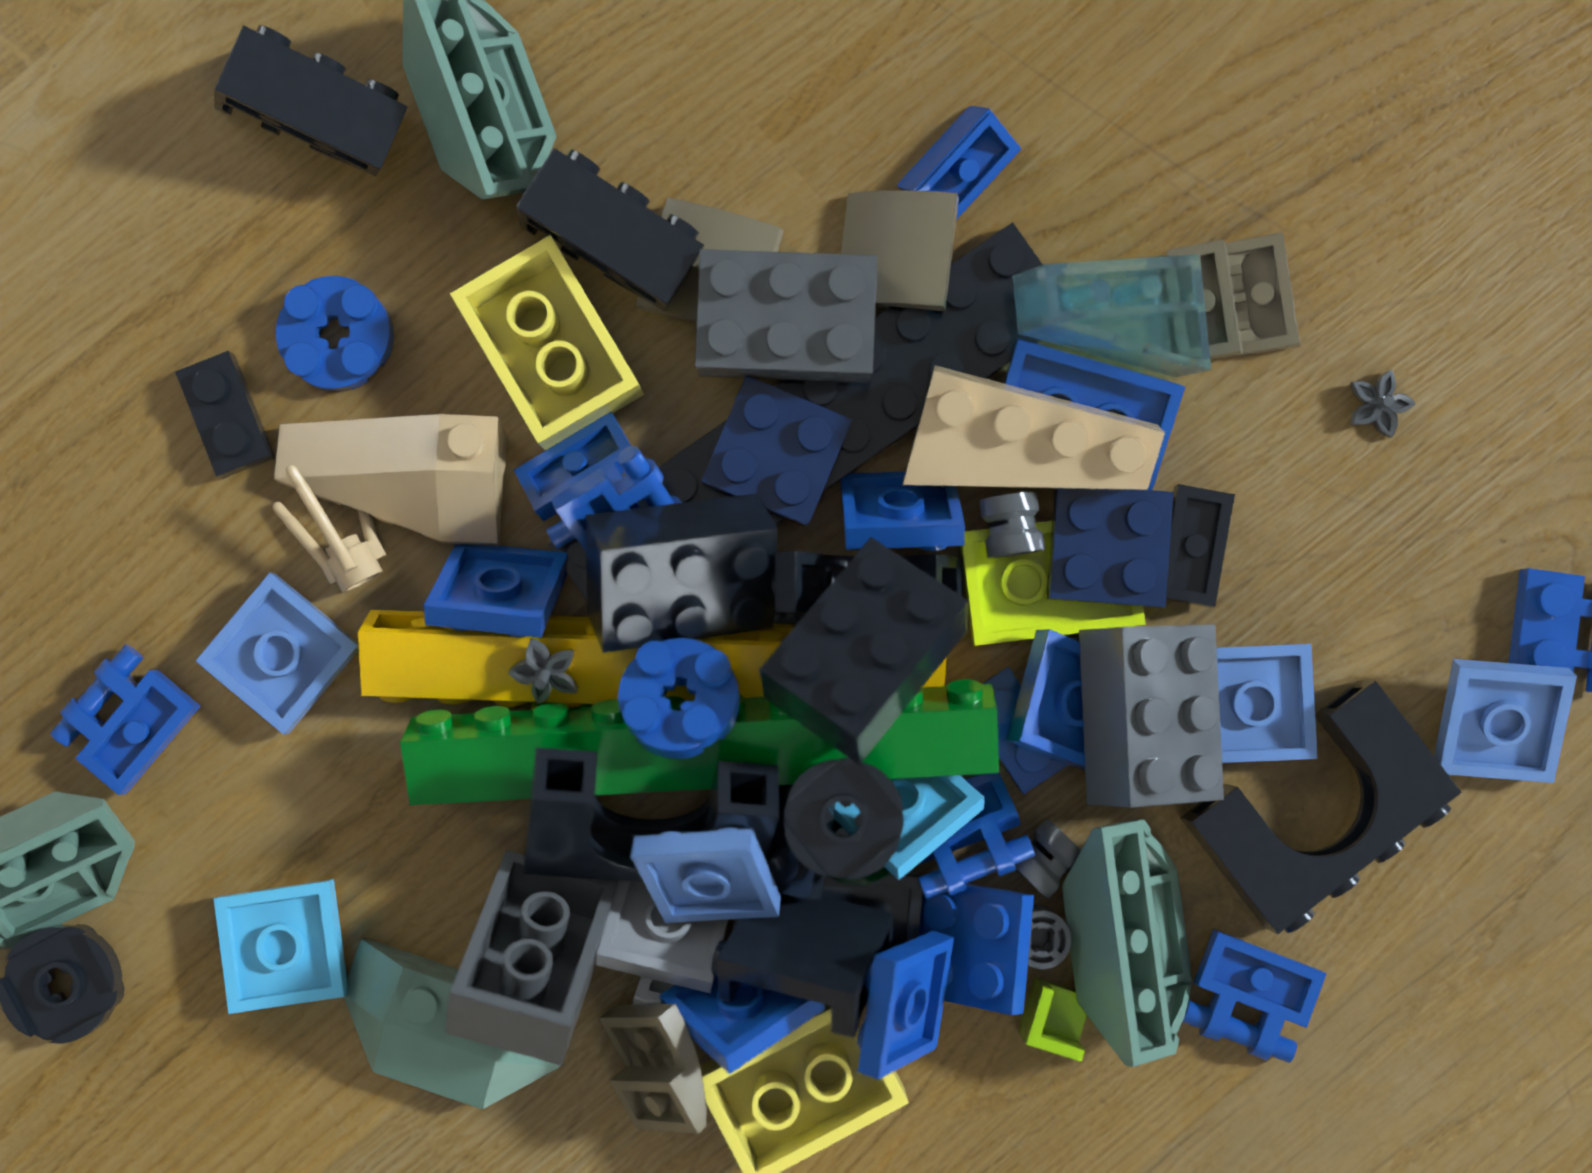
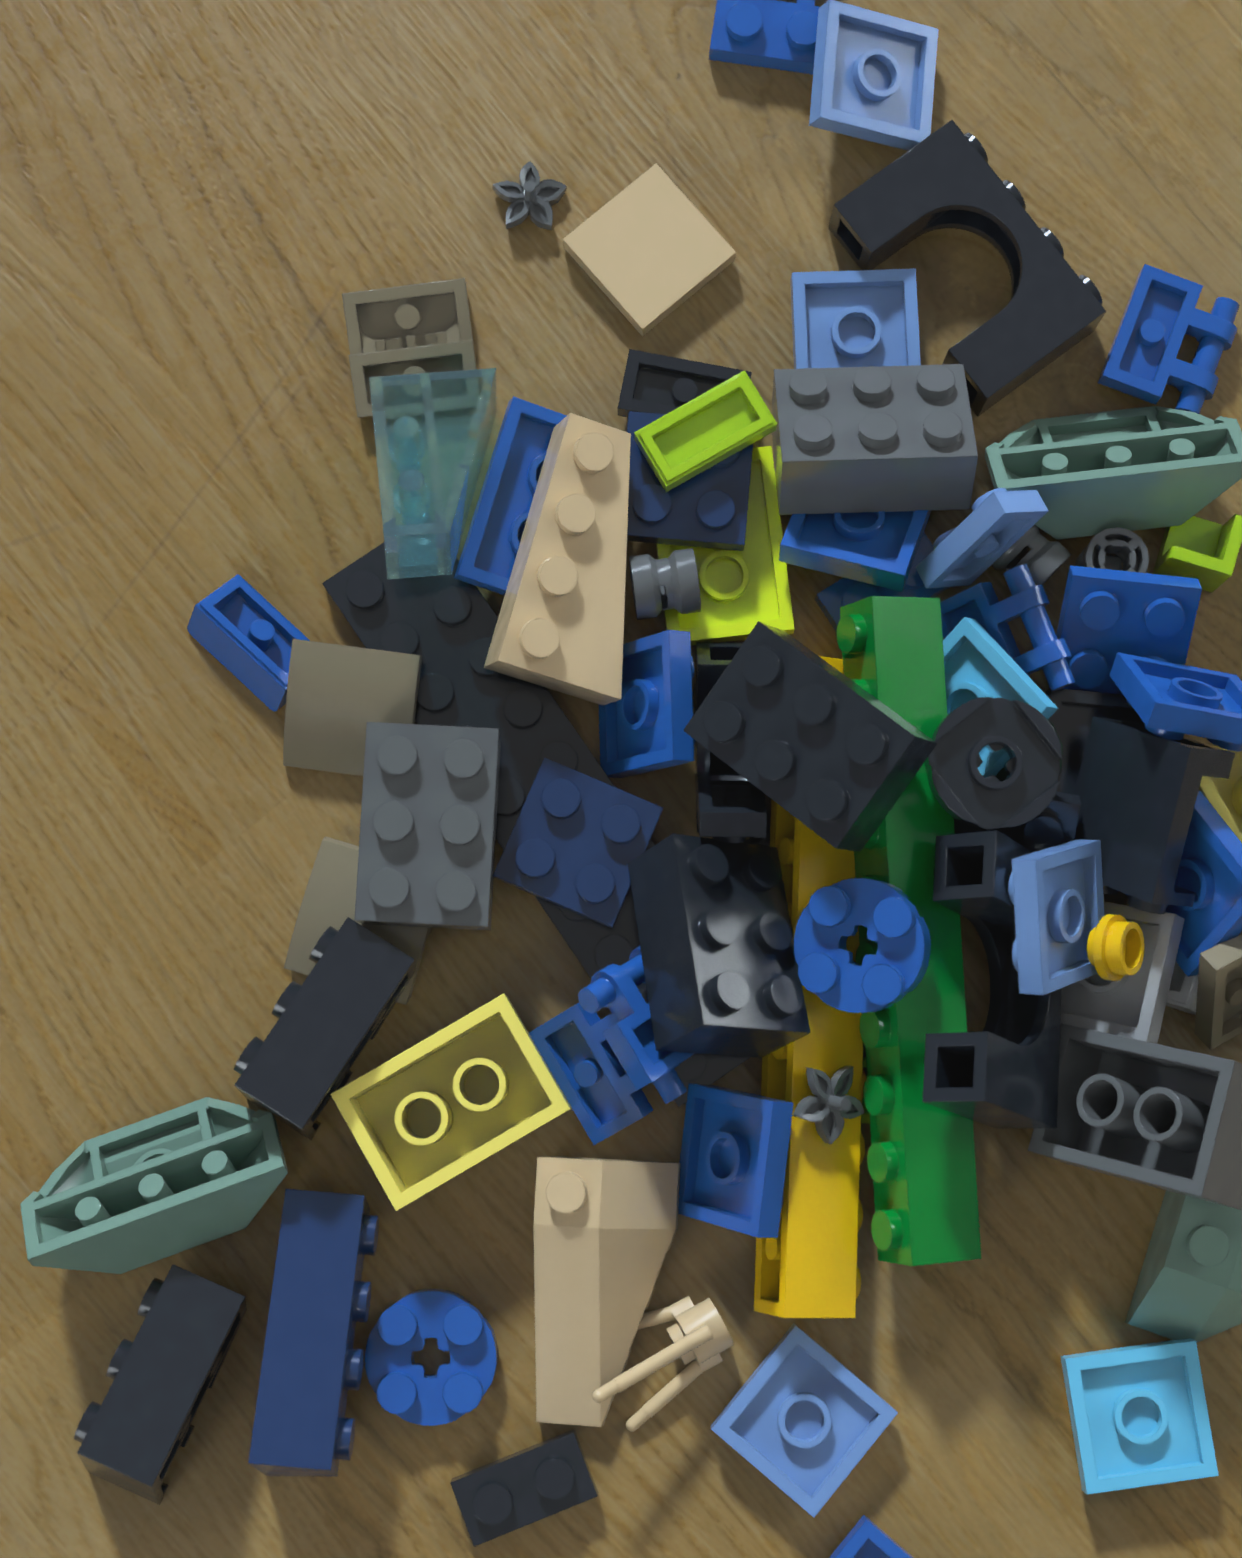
camera: 85 degrees left, 5 degrees down
(348, 227) = (311, 1335): none -> dark blue wedge
(680, 928) = (1115, 947): none -> yellow plate
(1057, 813) = (979, 540): none -> medium blue plate
(1153, 560) = (705, 431): none -> lime tile
(1332, 514) = (649, 249): none -> tan tile

